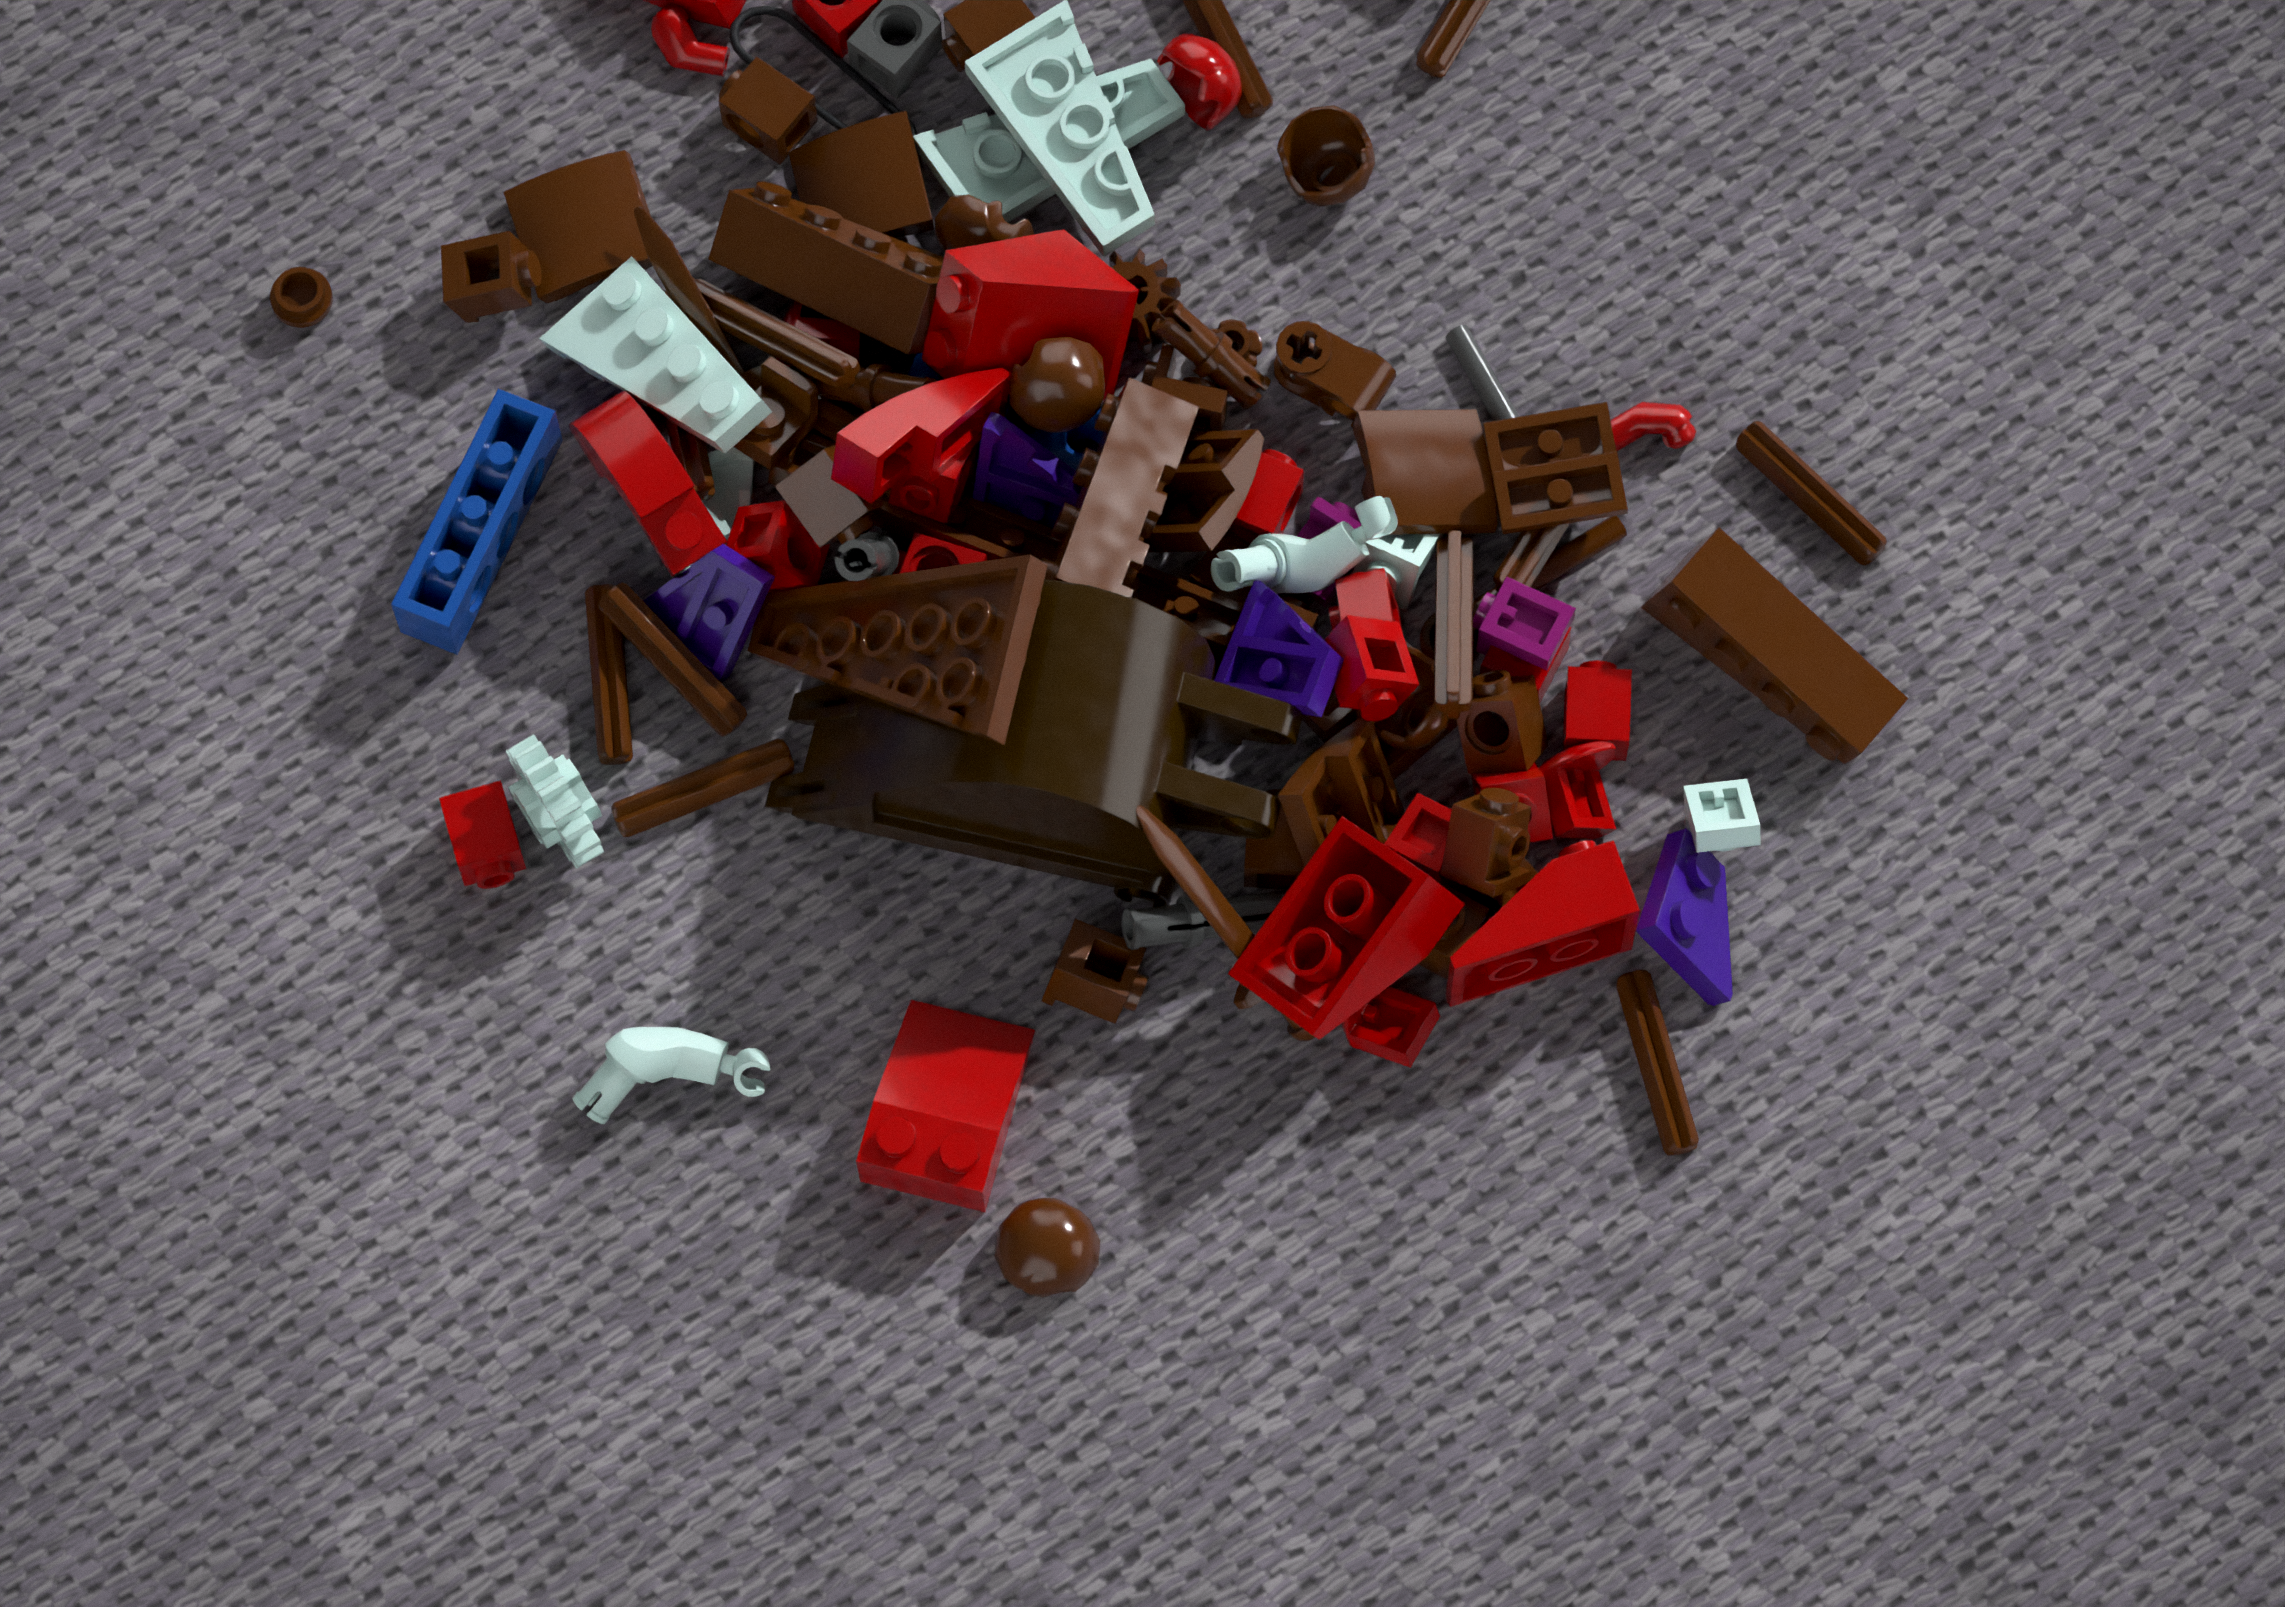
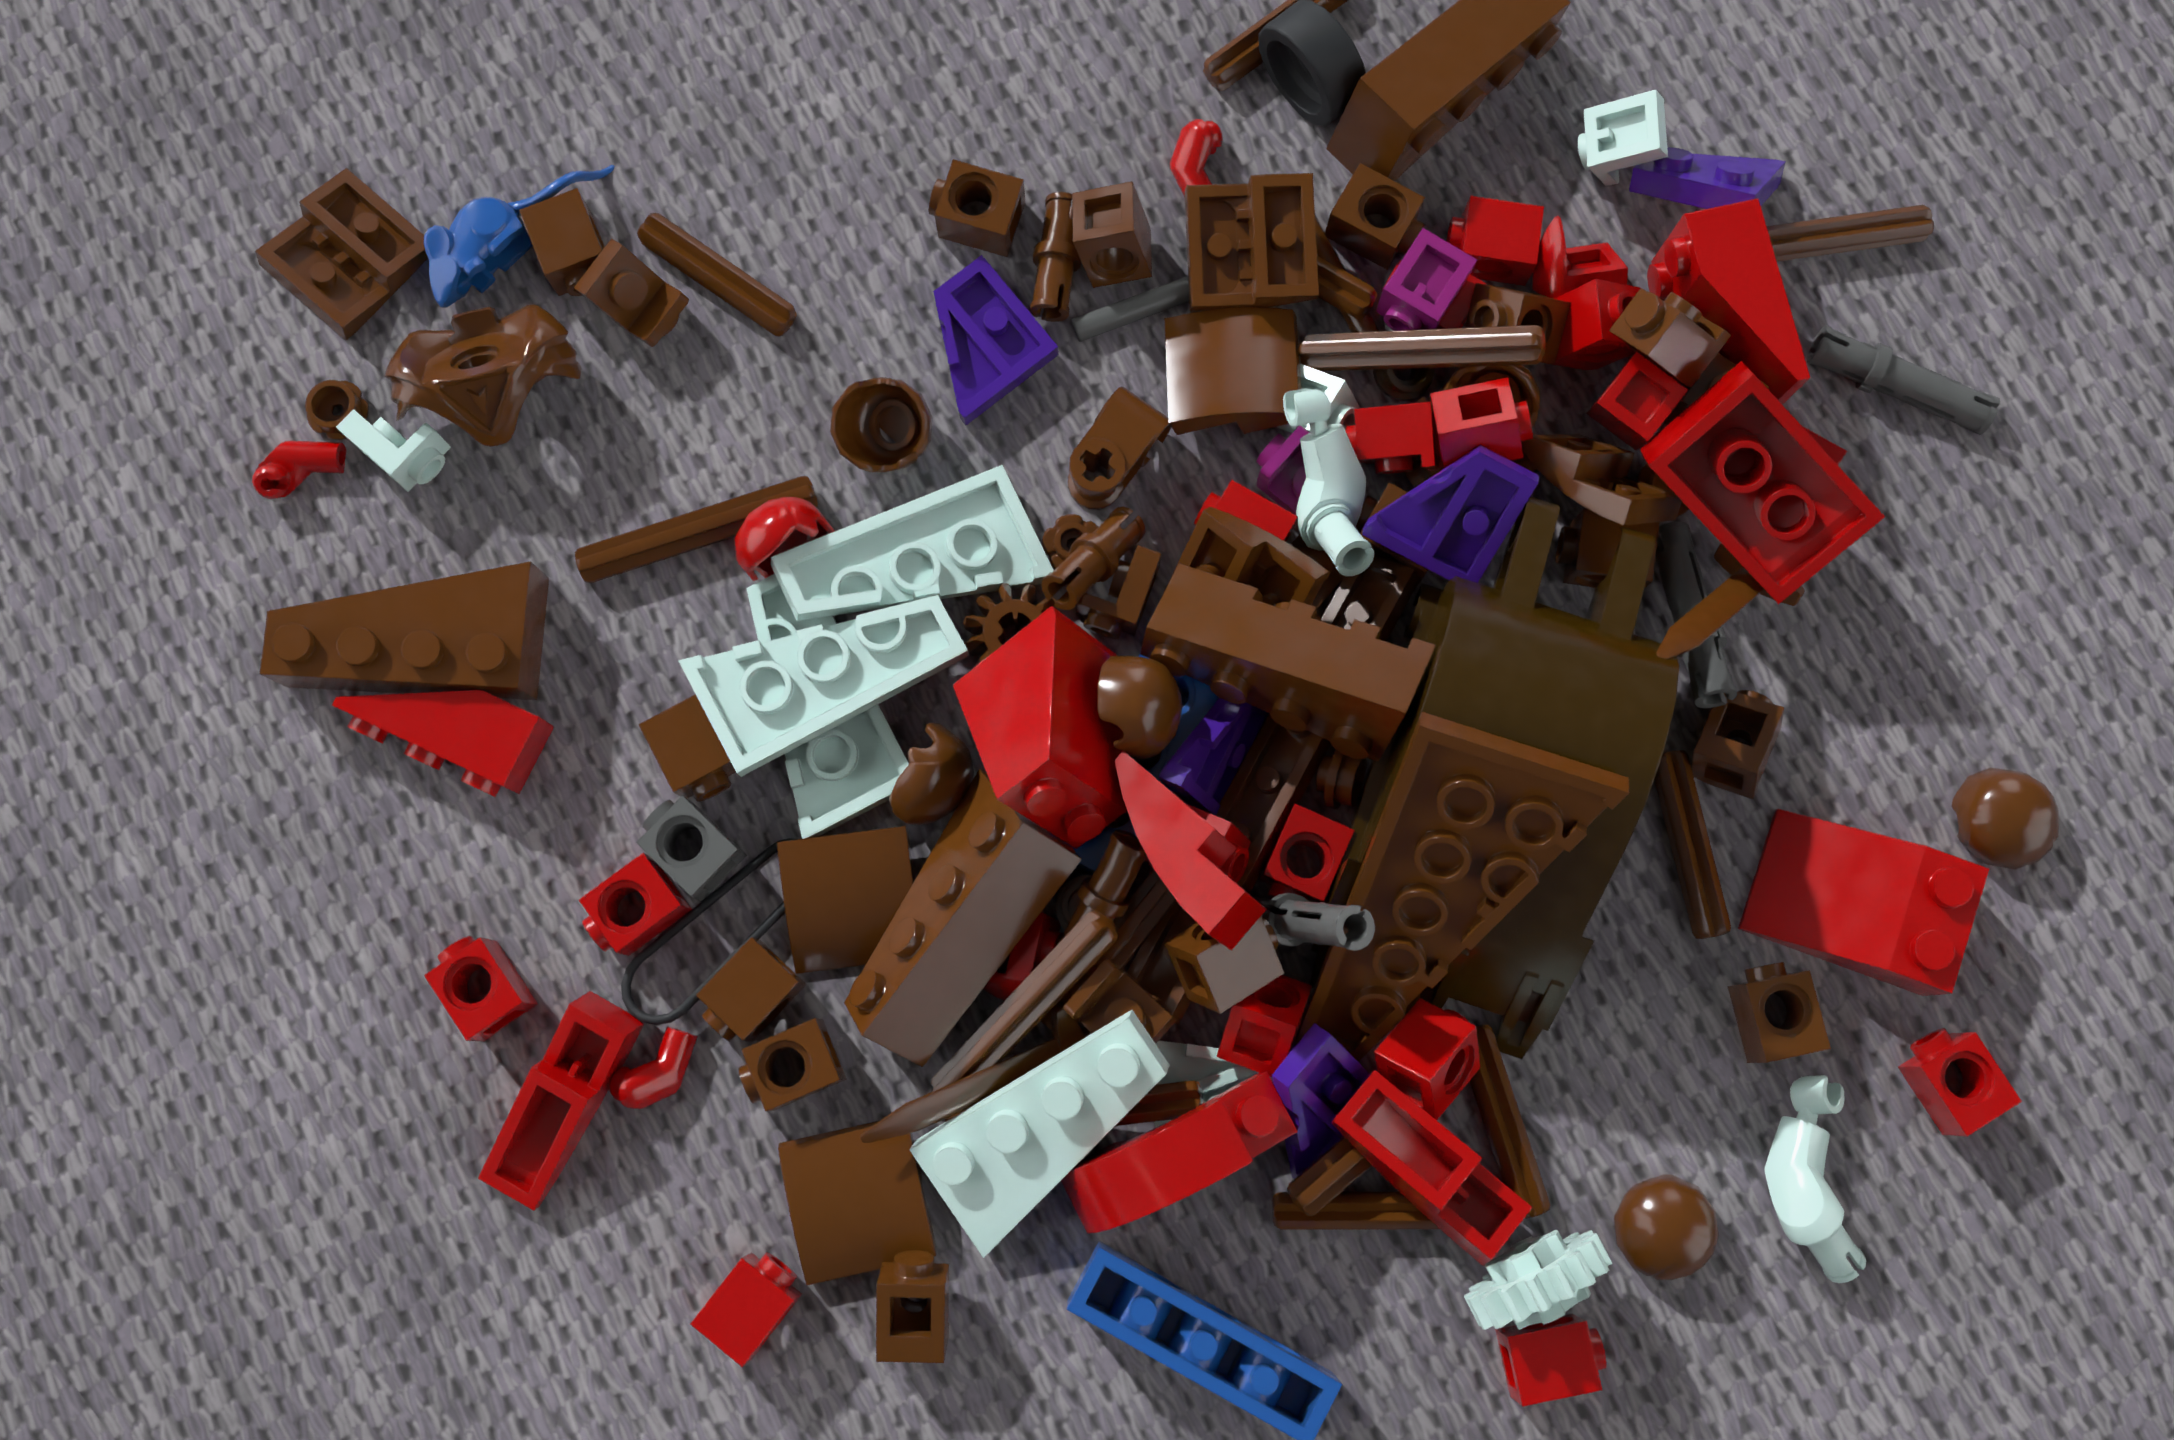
camera: 85 degrees left, 10 degrees up
(480, 142) = (748, 1306): none -> red brick
(614, 944) = (1666, 1227): none -> reddish brown hair
(650, 701) = (1431, 1168): none -> red slope
(706, 176) = (820, 1060): none -> reddish brown brick
(753, 695) = (1430, 1056): none -> red brick
(771, 1225) = (1984, 1087): none -> red brick
(802, 1010) = (1803, 1027): none -> reddish brown brick
(986, 946) = (1691, 846): none -> reddish brown axle
(1205, 210) = (939, 545): none -> light aqua wing
(1434, 248) = (988, 338): none -> dark purple wing
(1507, 1100) = (1882, 371): none -> dark grey pin
(1527, 303) = (1055, 260): none -> reddish brown pin
(1548, 341) = (1112, 234): none -> reddish brown brick
(1562, 245) = (988, 231): none -> reddish brown brick
(1612, 571) = (1375, 194): none -> reddish brown brick
(1760, 503) = (1311, 61): none -> black tyre

